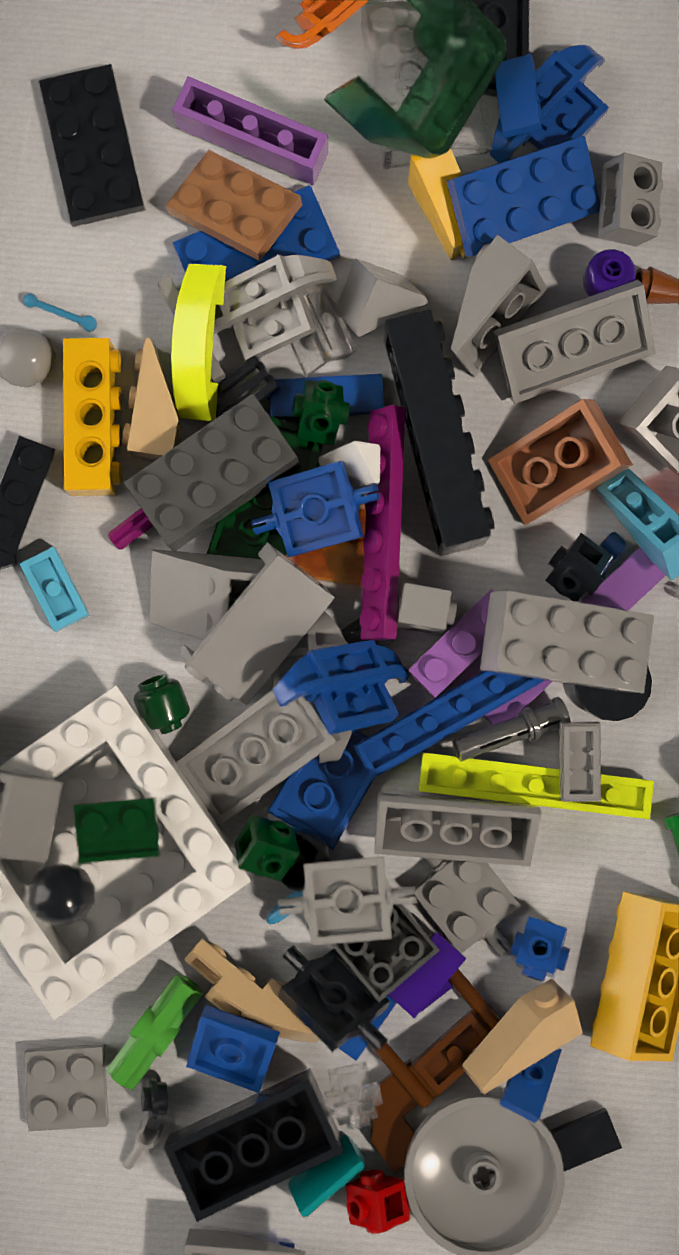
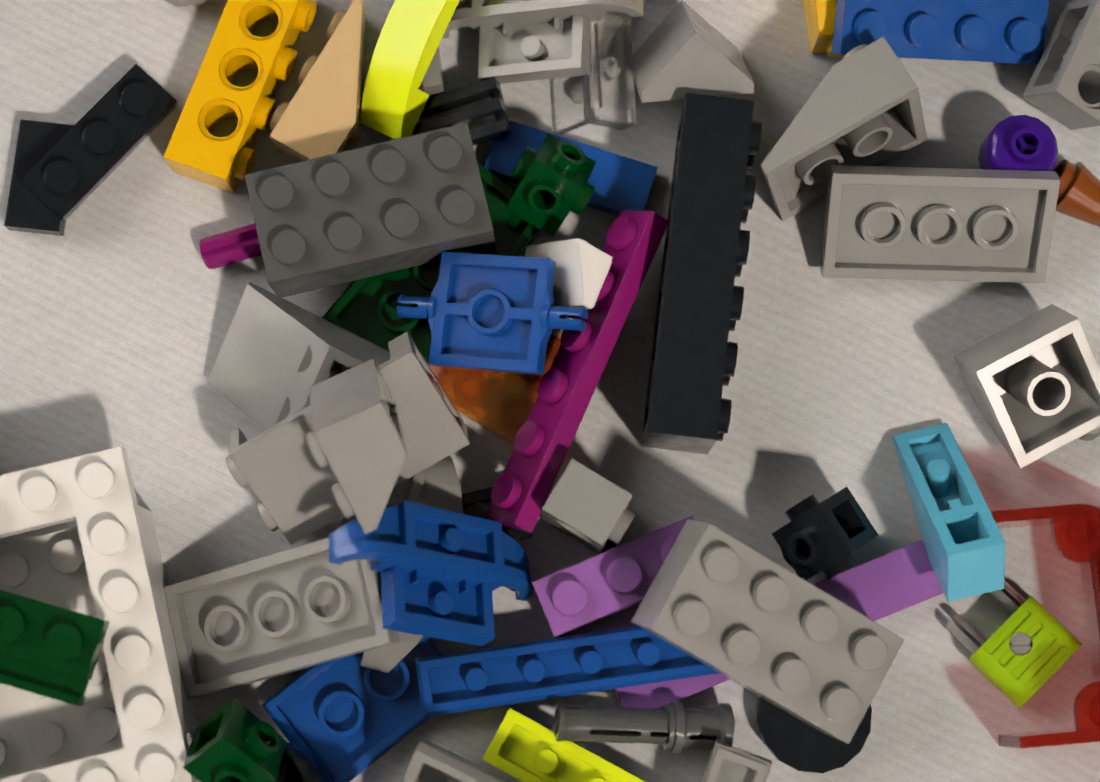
camera: 15 degrees right, 5 degrees down
(54, 589) = (97, 287): medium azure plate -> none
(161, 703) = (177, 498): dark green head -> none
(268, 623) = (360, 437): none -> light grey slope
(560, 460) = (856, 378): nougat slope -> none
(614, 545) = (887, 524): dark blue hand -> none

